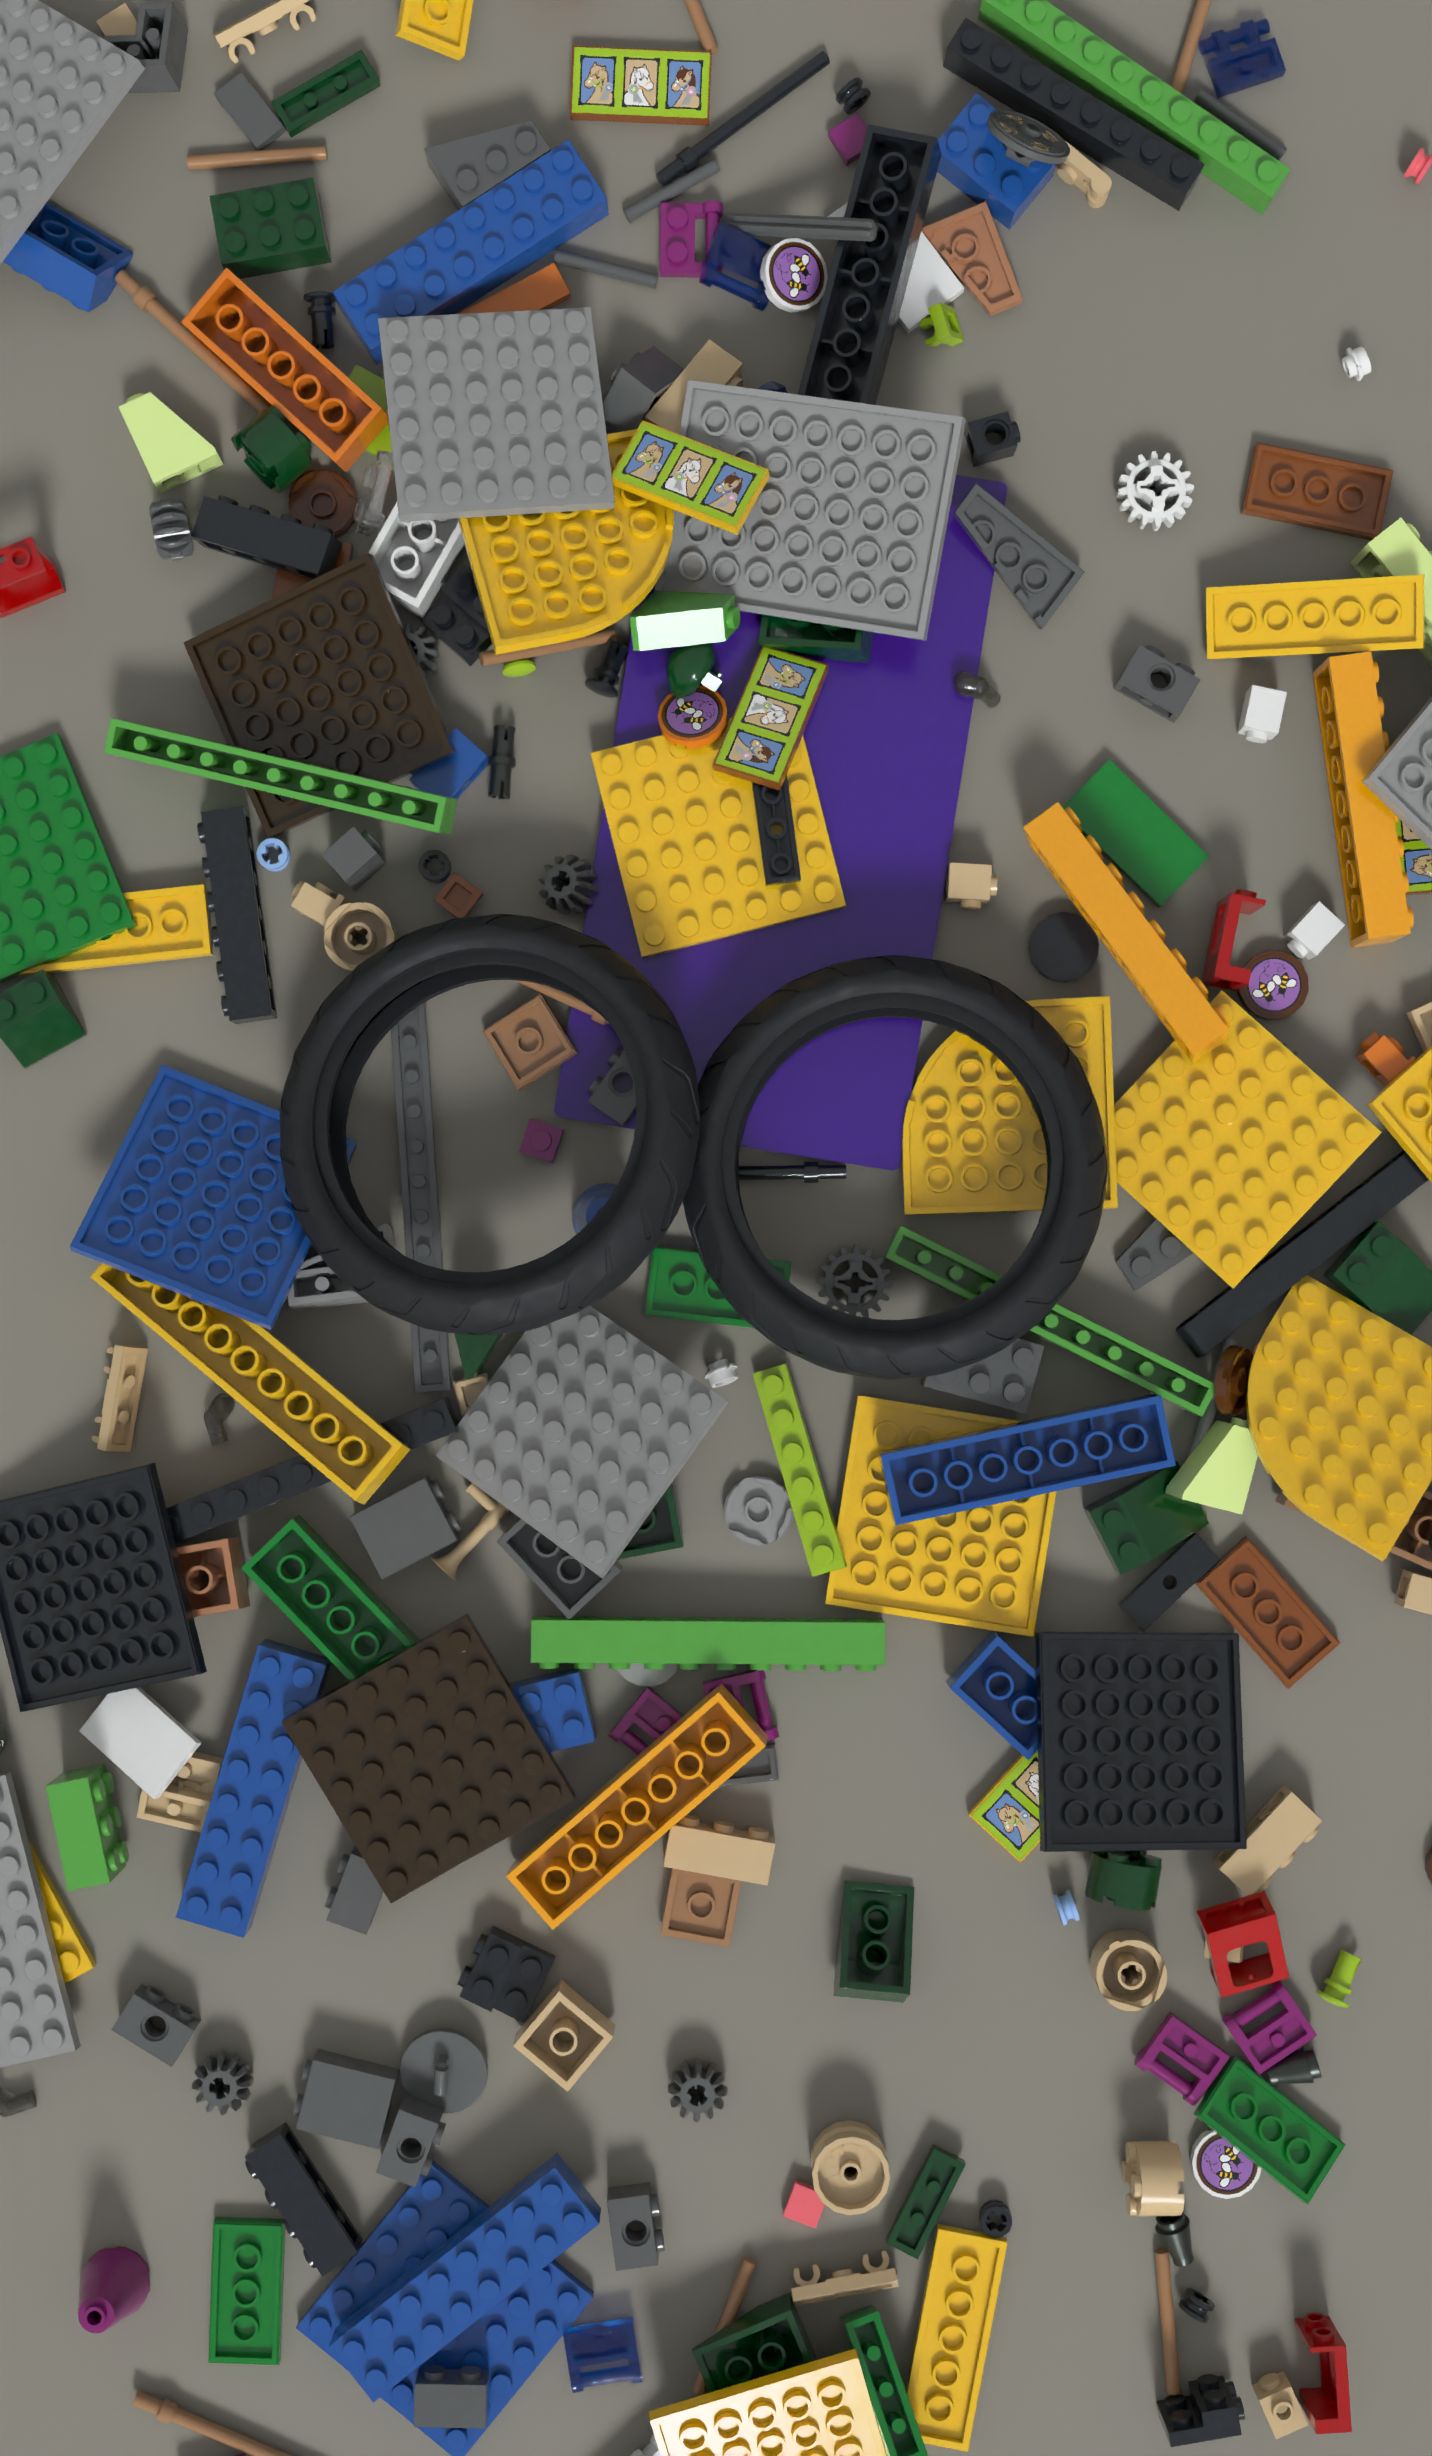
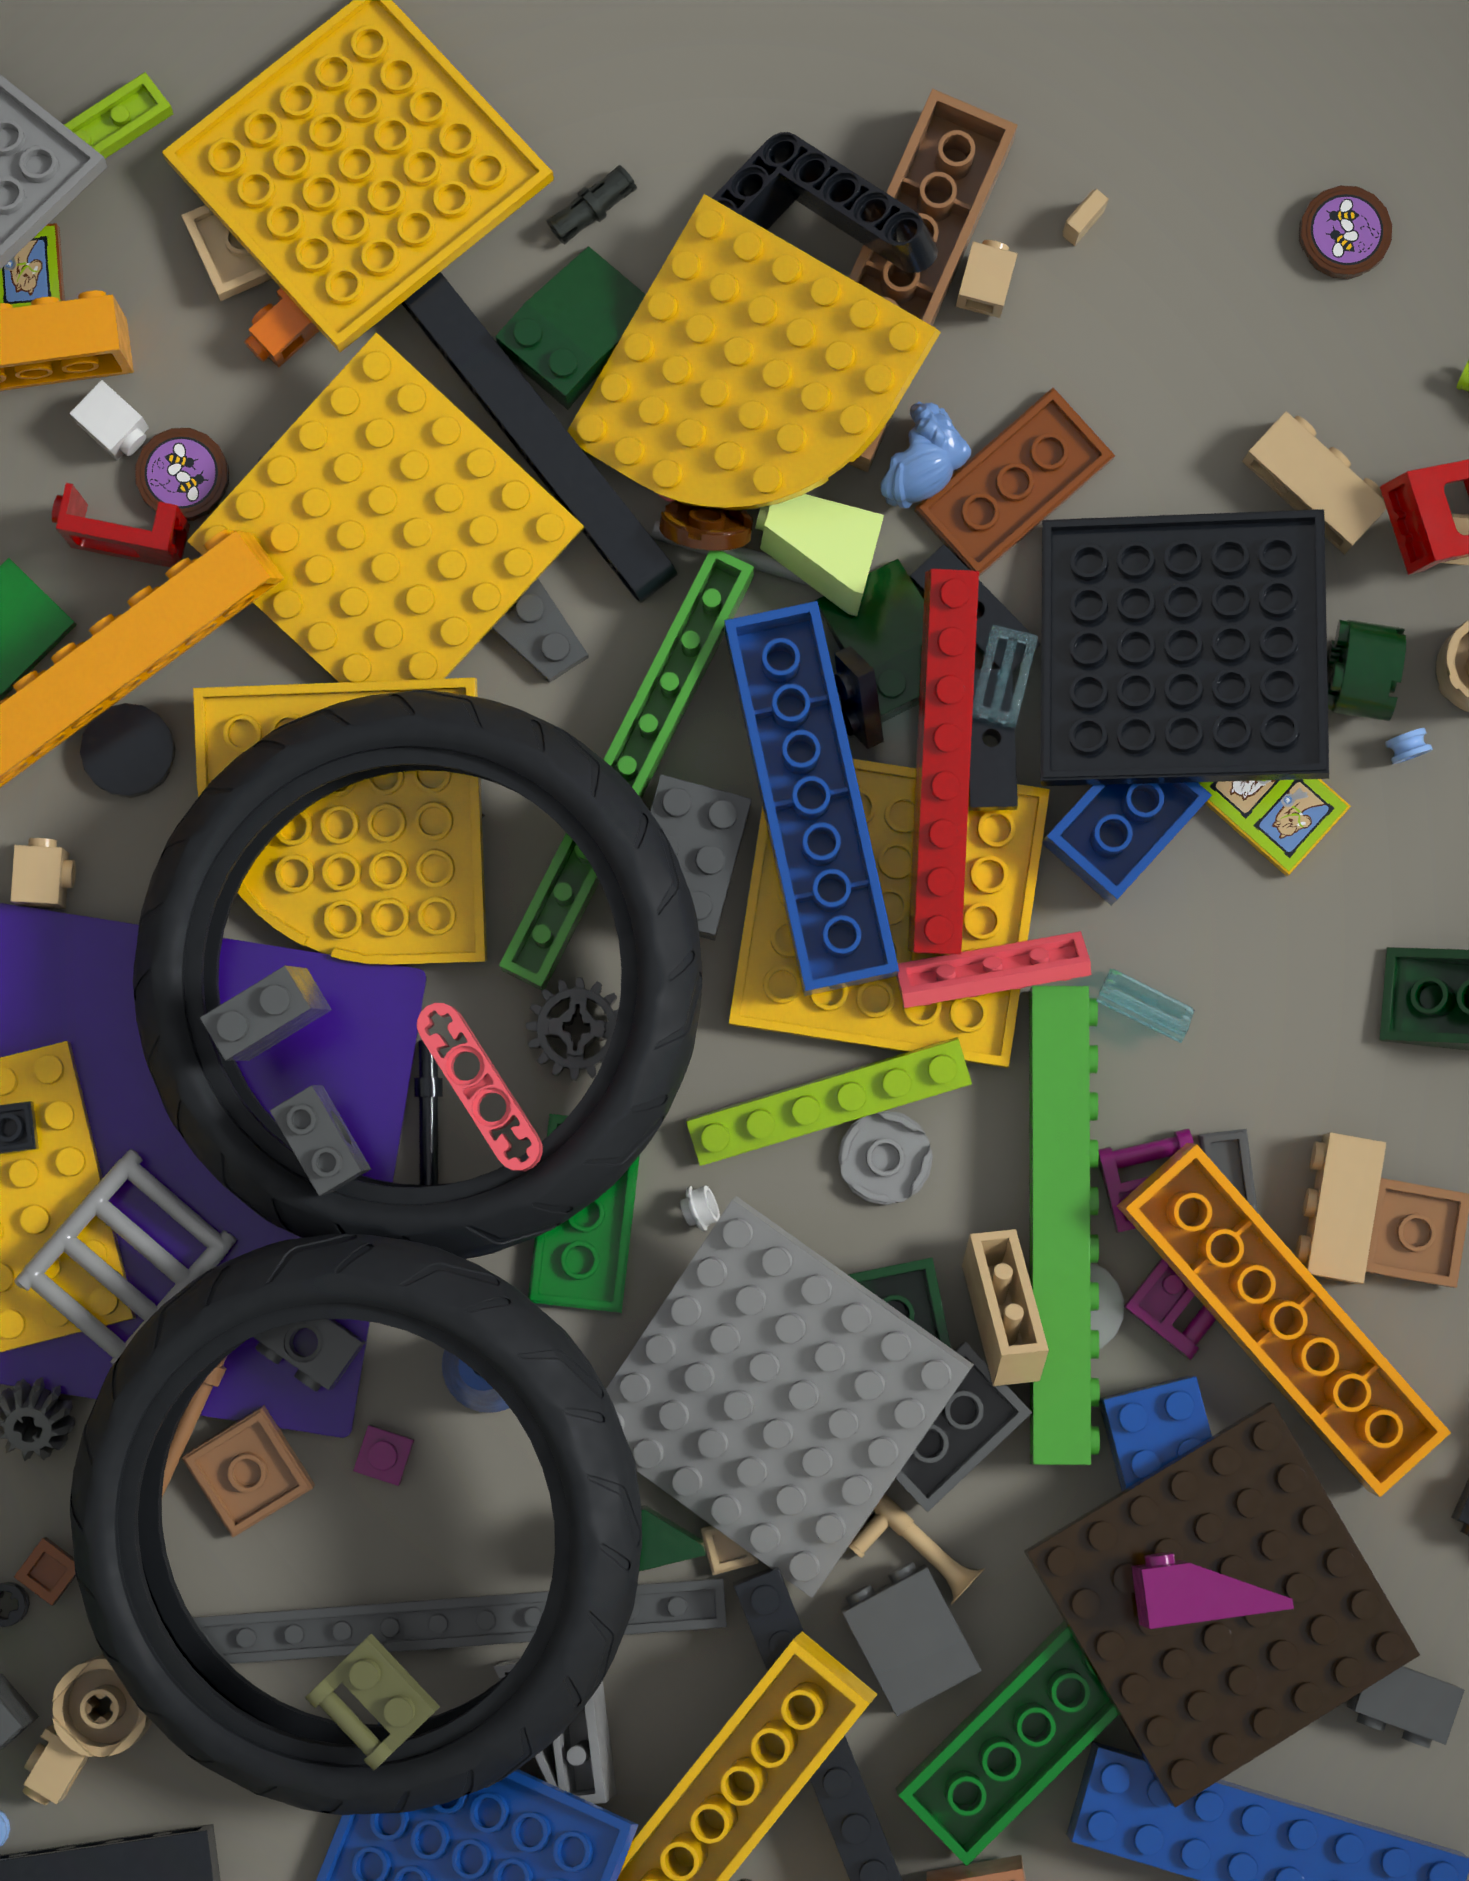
camera: 90 degrees left, 5 degrees down
(366, 1147) = (383, 1690): none -> olive plate
(434, 1730) = (1183, 1593): none -> magenta slope
(646, 1600) = (1004, 1307): none -> tan brick
(724, 930) = (98, 1204): none -> light grey bar
(769, 1096) = (320, 1139): none -> dark grey brick
(805, 1210) = (484, 1083): none -> coral beam
(862, 1056) = (265, 1013): none -> dark grey brick
(871, 1706) = (1145, 1005): none -> clear light blue tile
(897, 1594) = (993, 969): none -> coral plate
(1054, 1559) = (943, 761): none -> red brick
(1090, 1597) = (994, 713): none -> clear light blue tile
(1091, 1593) = (993, 768): none -> black tile
(1103, 1495) = (859, 697): none -> black plate
(1284, 1550) = (928, 462): none -> medium blue hair

